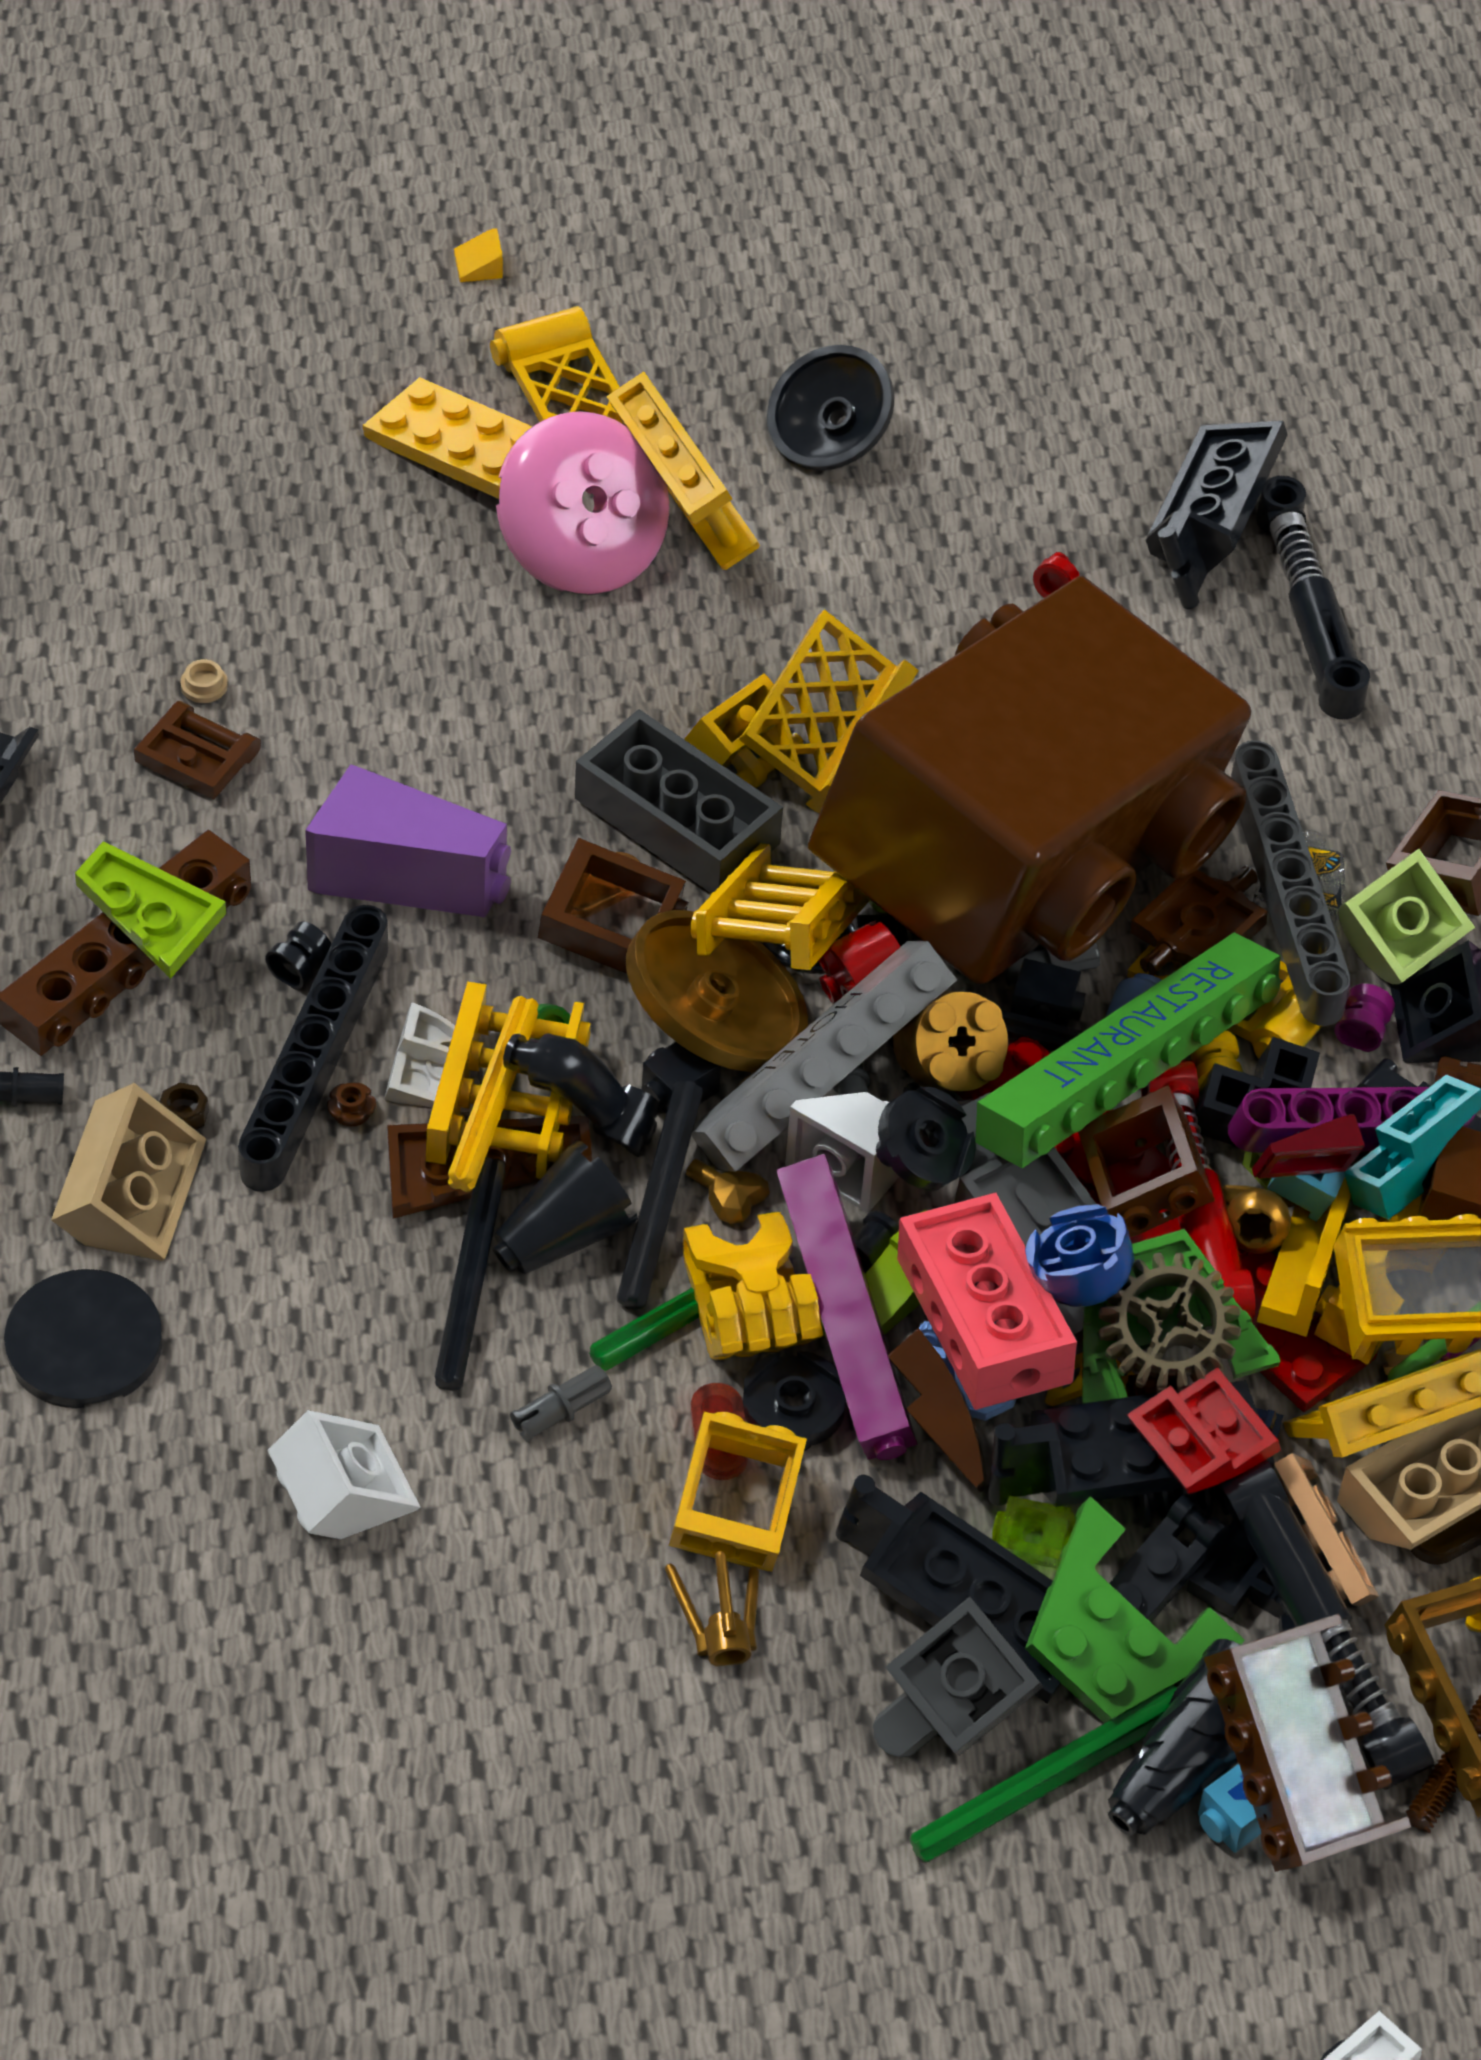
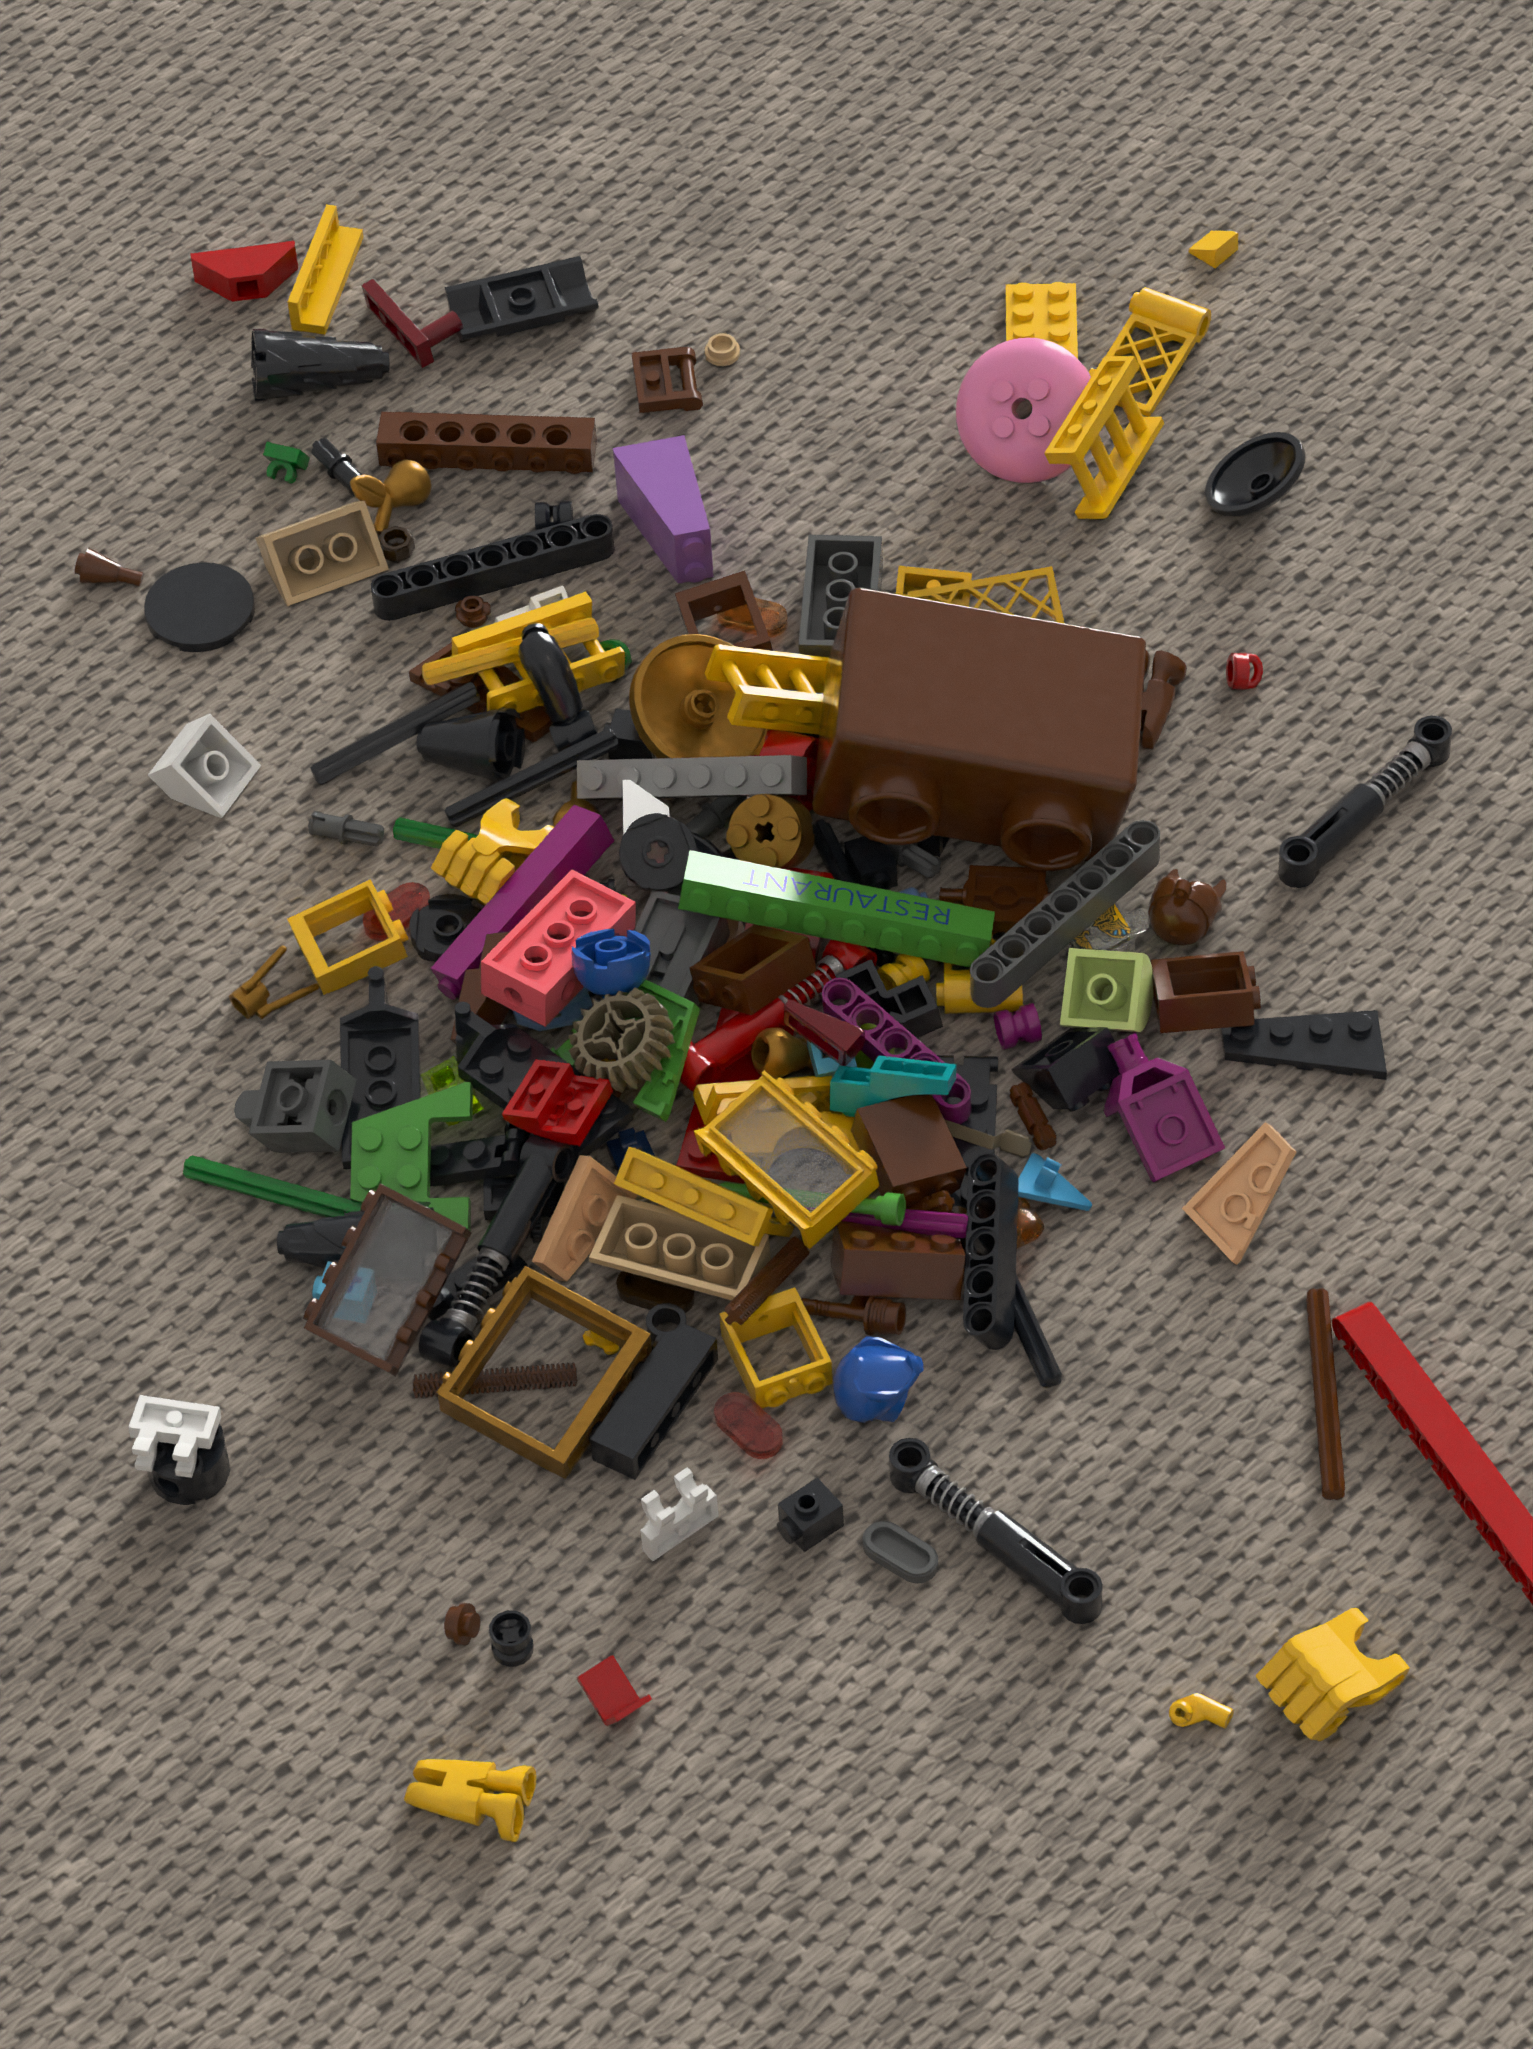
camera: 60 degrees right, 0 degrees up
(115, 1047) = (404, 486): none -> pearl gold piece
(150, 905) = (502, 429): lime wing -> none
(1213, 500) = (1391, 700): black hinge -> none
(1336, 802) = (1184, 910): none -> reddish brown hair

